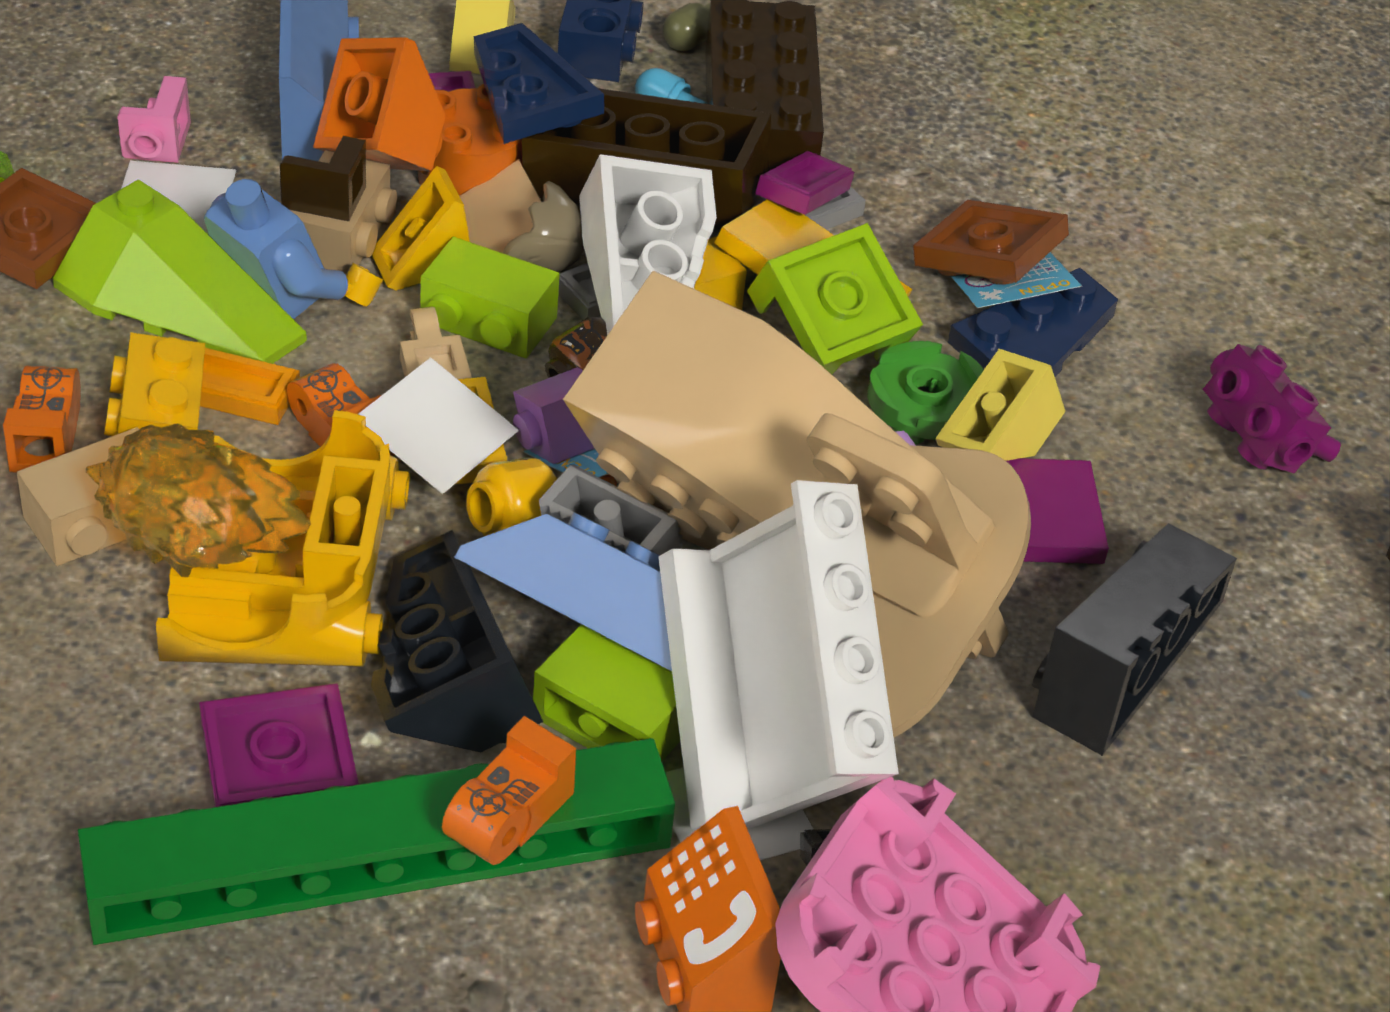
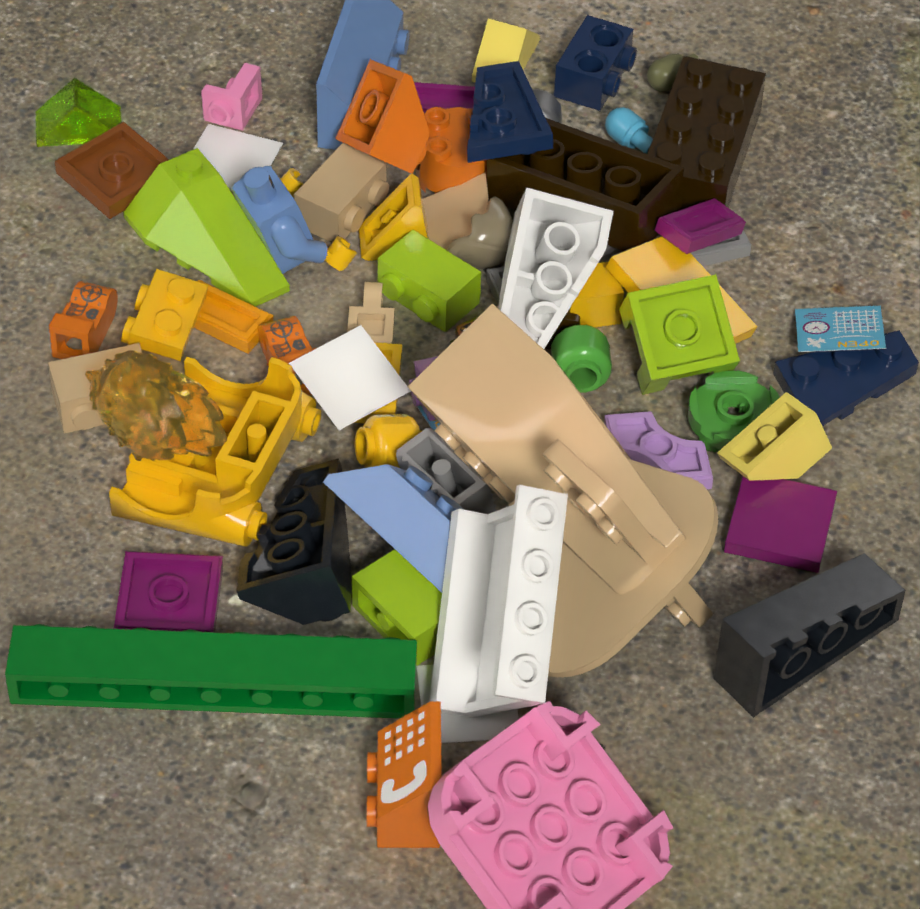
camera: 20 degrees right, 5 degrees up
(324, 187) = (329, 177): dark brown panel -> none
(513, 793) = (298, 661): orange leg -> none
(991, 241) = (832, 297): dark orange plate -> none

